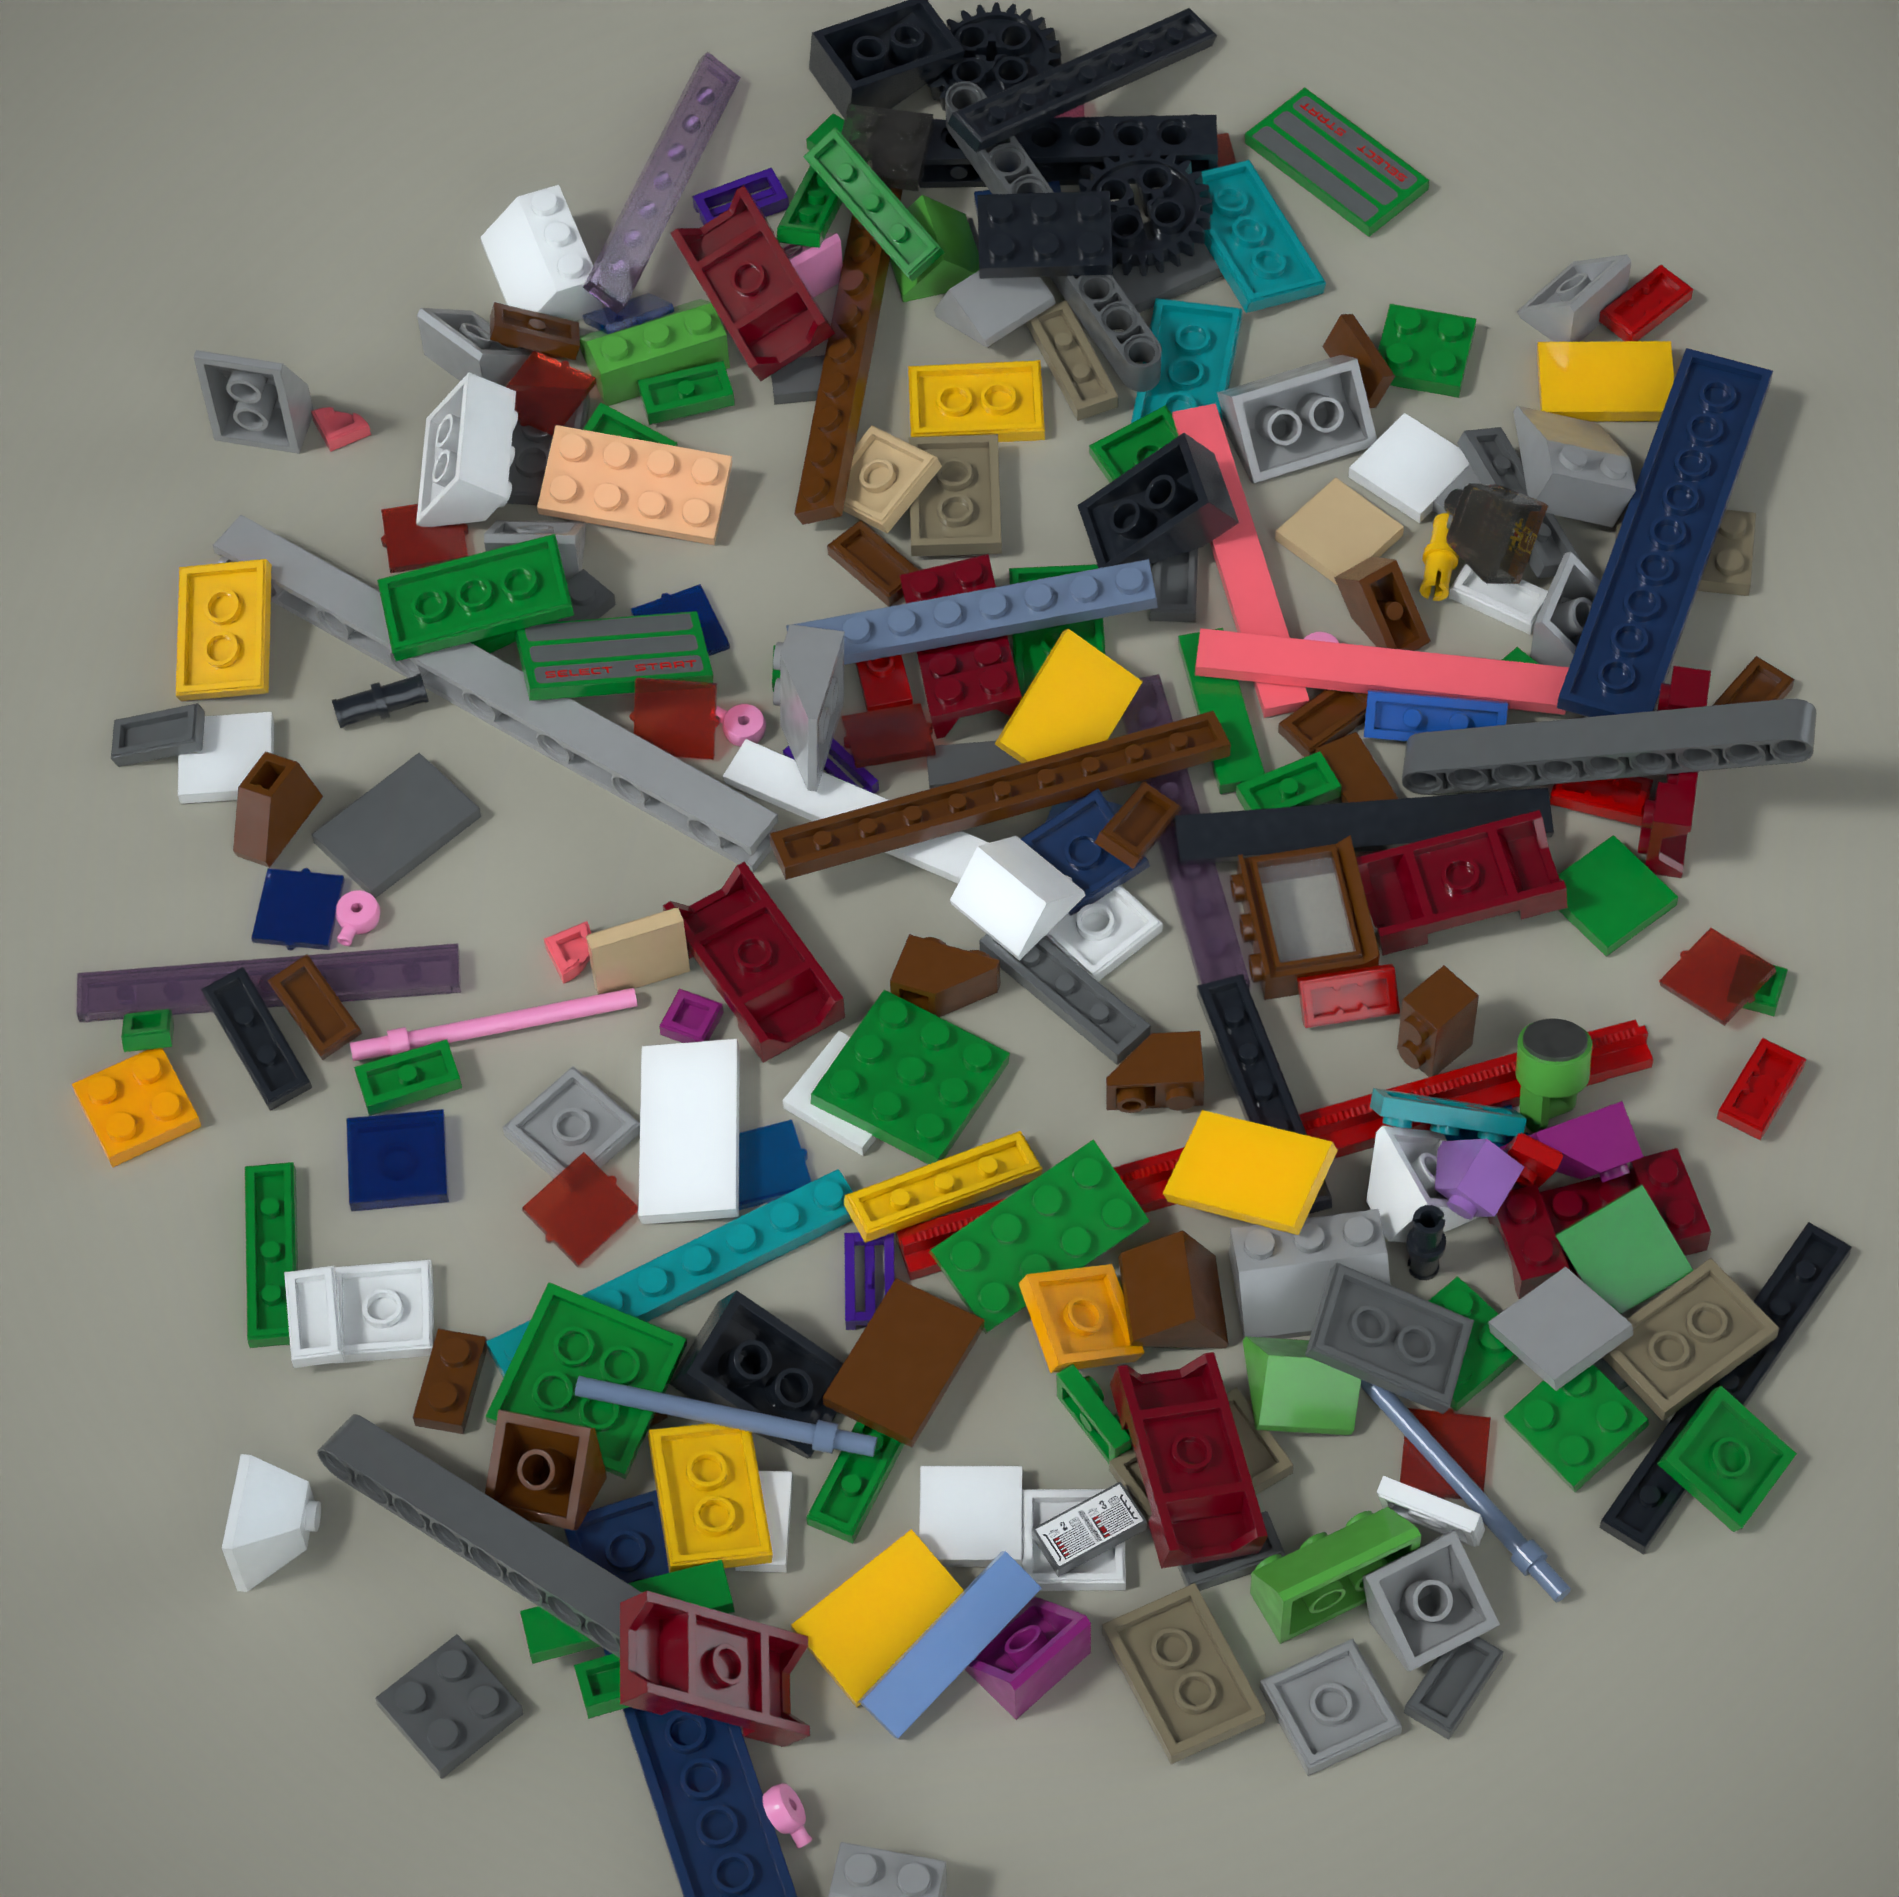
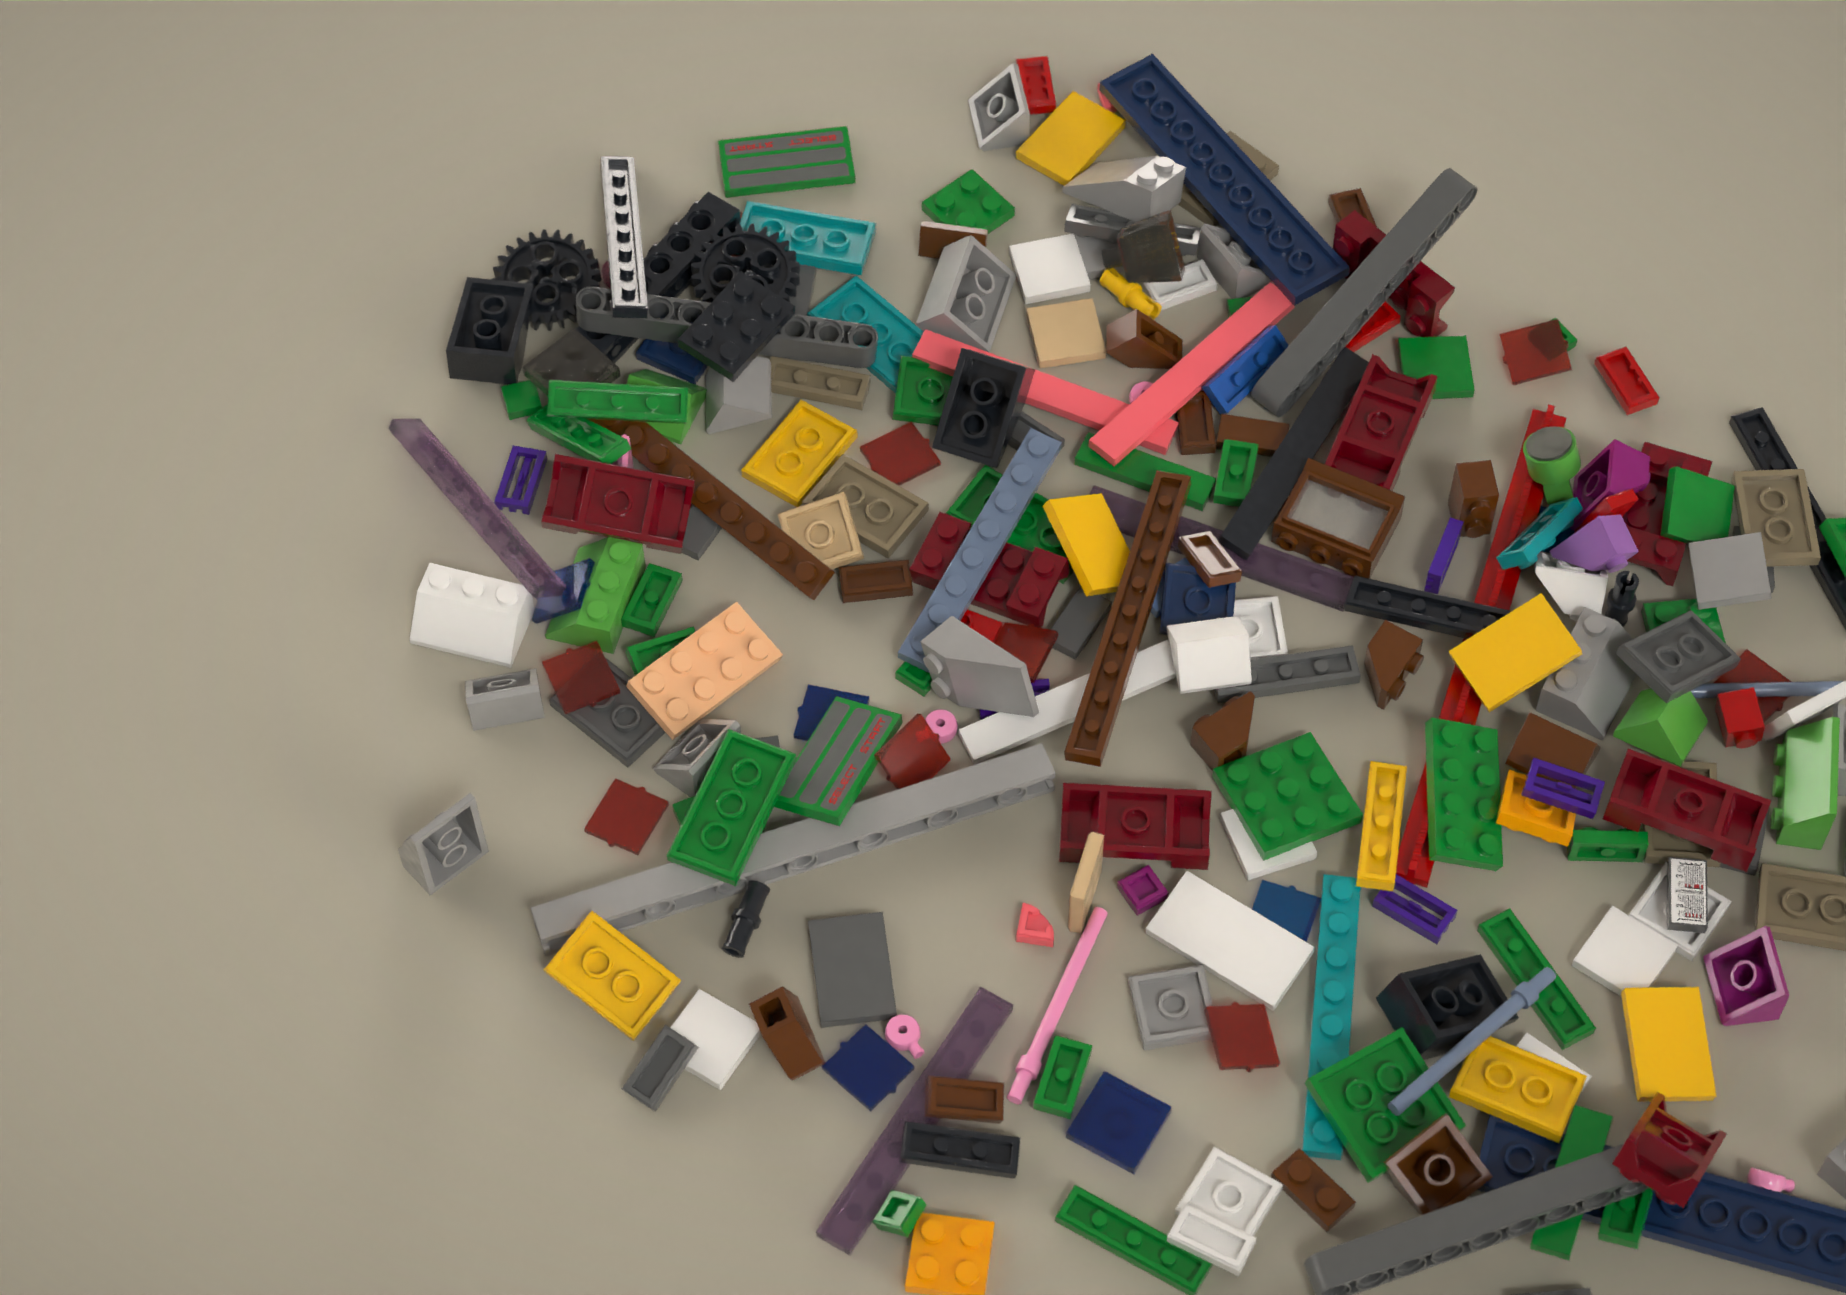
camera: 55 degrees left, 0 degrees up
(339, 427) = (495, 812): coral tile -> none
(467, 454) = (597, 749): white slope -> none
(534, 331) = (528, 651): reddish brown plate -> none
(903, 1362) = (1497, 922): reddish brown tile -> none
(950, 1644) = (1717, 1018): medium blue tile -> none
(1050, 488) = (901, 454): none -> clear red piece
(1103, 1283) = (1562, 794): none -> dark purple tile
(1347, 1045) = (1443, 556): none -> dark purple tile
(1348, 995) = (1408, 534): red plate -> none
(1374, 1450) = (1739, 718): none -> red brick
(1577, 1425) = (1791, 614): green plate -> none

